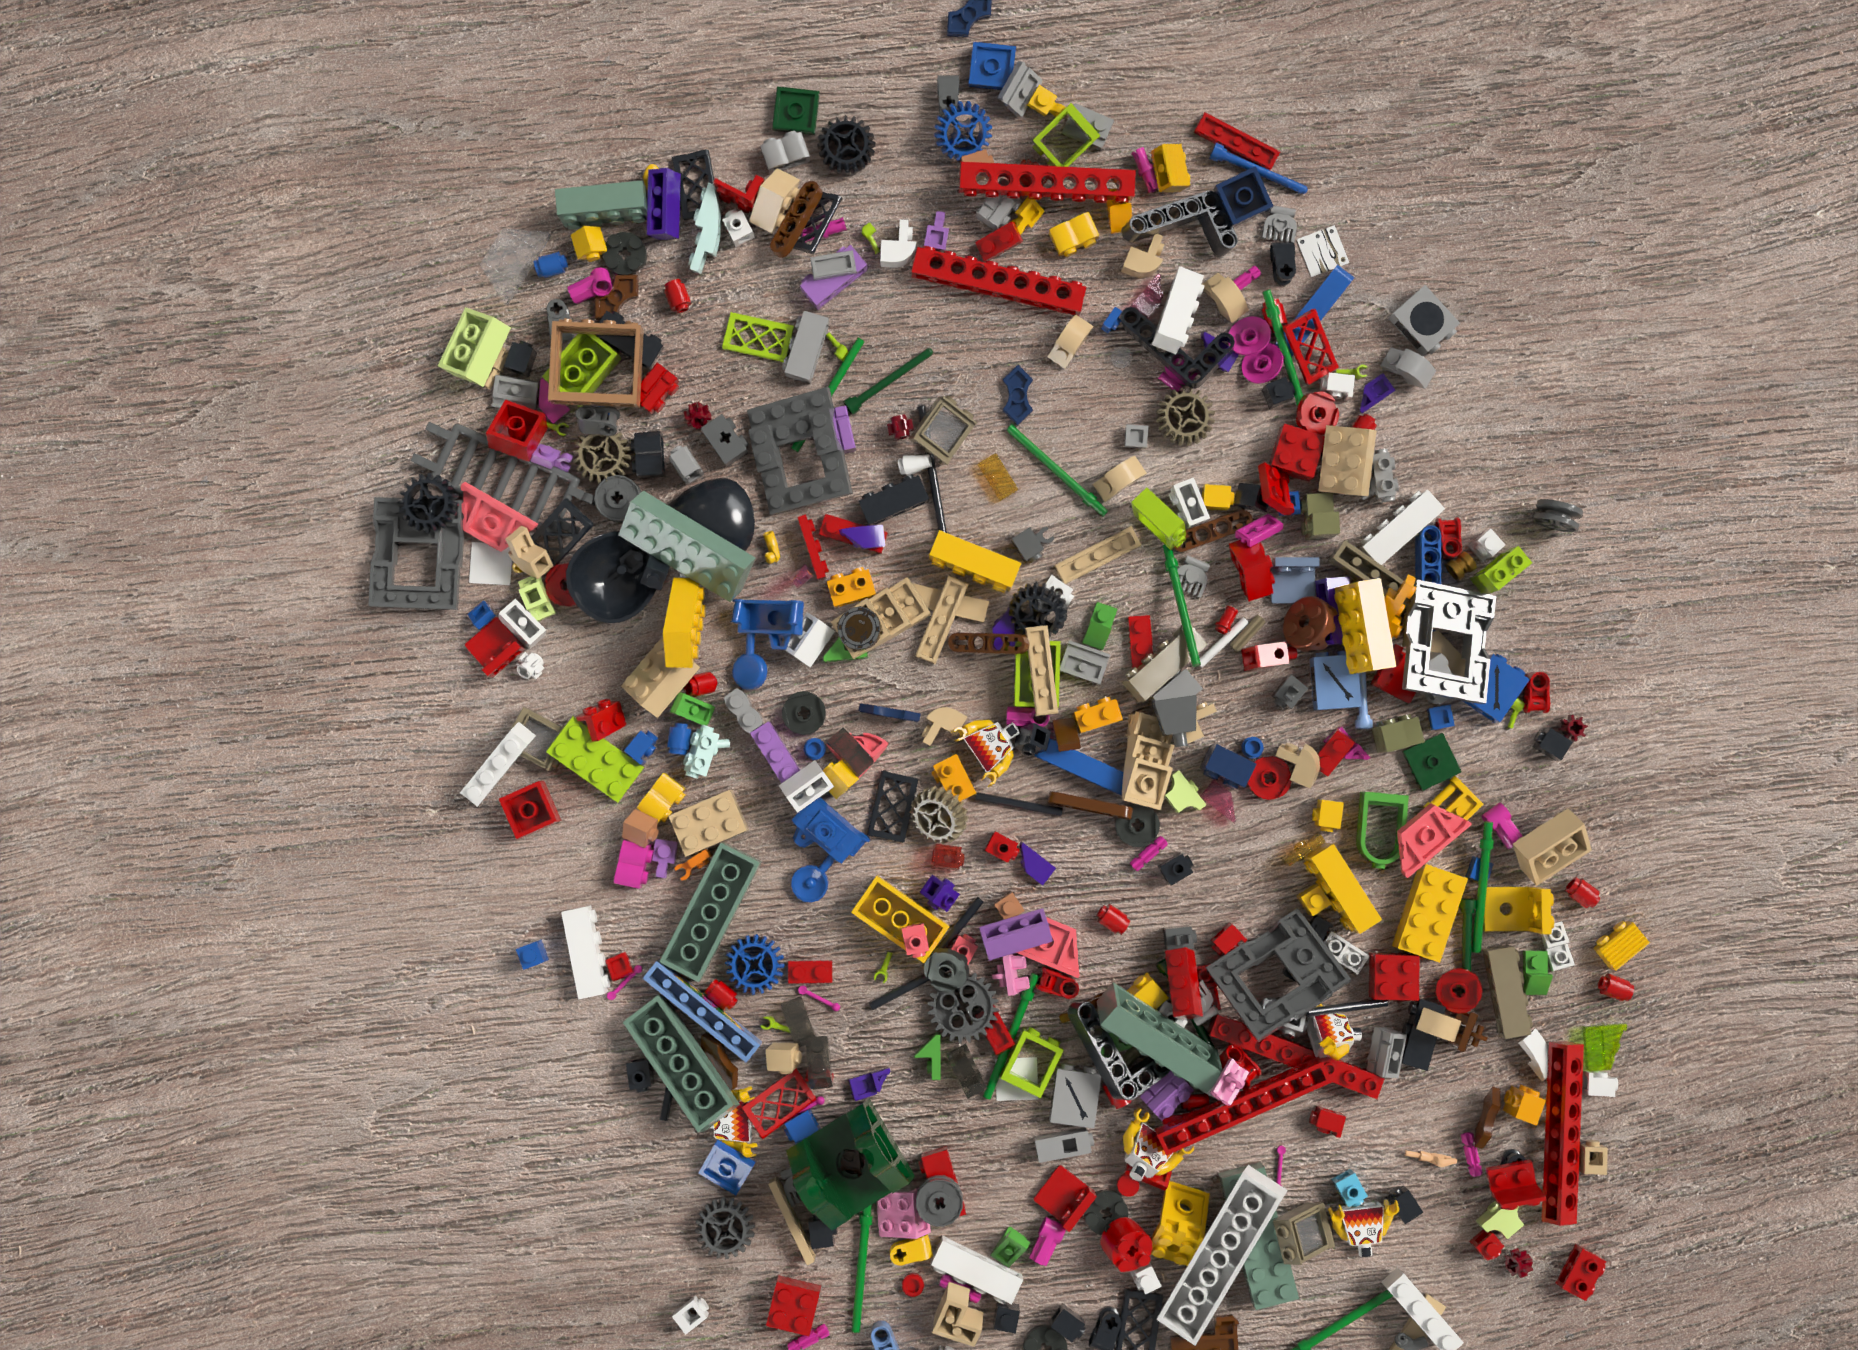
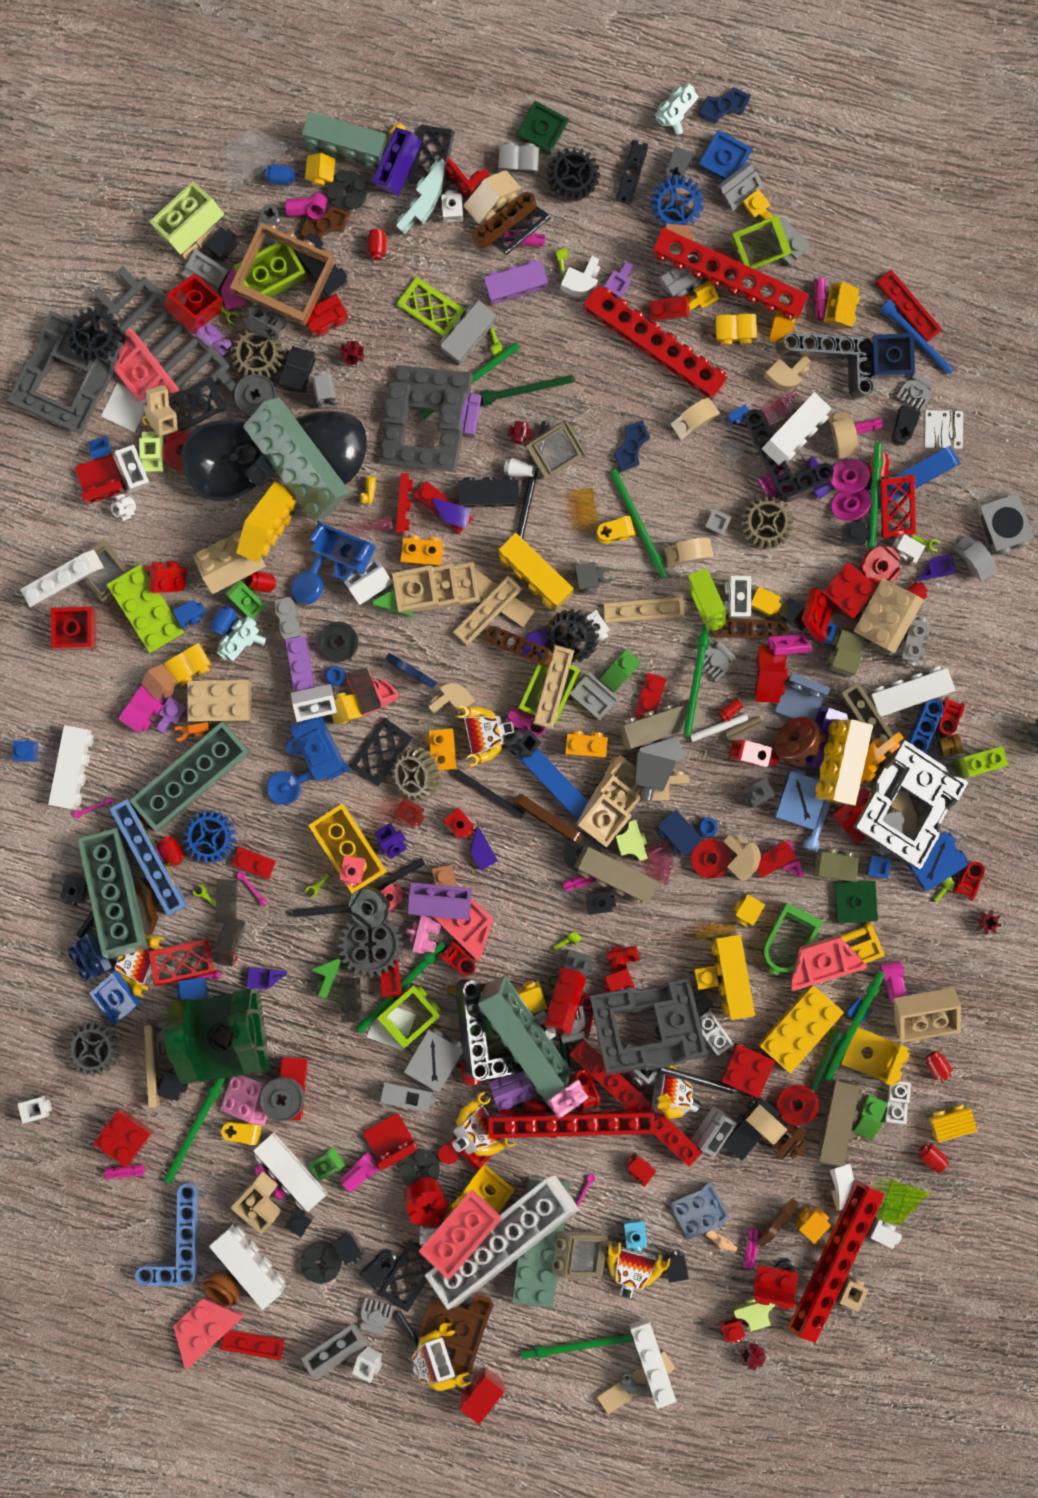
camera: 20 degrees right, 0 degrees up
(619, 966) = (94, 792): red tile -> none
(683, 1138) = (88, 958): none -> dark blue brick
(728, 452) = (360, 373): dark grey brick -> none
(783, 1057) = (200, 925): tan brick -> none
(833, 265) = (519, 271): light grey tile -> none
(859, 628) = (414, 588): tile -> none
(905, 132) = (629, 184): none -> black piece
(912, 1284) = (231, 1162): red tile -> none
(920, 39) = (672, 110): none -> light aqua brick
(1040, 484) = (618, 530): none -> yellow piece
(1066, 734) = (553, 750): reddish brown tile -> none
(1113, 919) = (528, 923): red brick -> none
(1163, 914) = (573, 937): none -> lime hand
(1177, 1265) = (460, 1234): none -> coral plate
(1181, 833) = (615, 874): none -> dark tan brick
(1218, 915) = (620, 956): none -> red plate
(1405, 1138) = (699, 1211): none -> sand blue bracket
(1486, 545) = (978, 736): white brick -> none
(1551, 743) = (964, 928): black brick -> none
(1581, 1272) = (803, 1387): red brick -> none

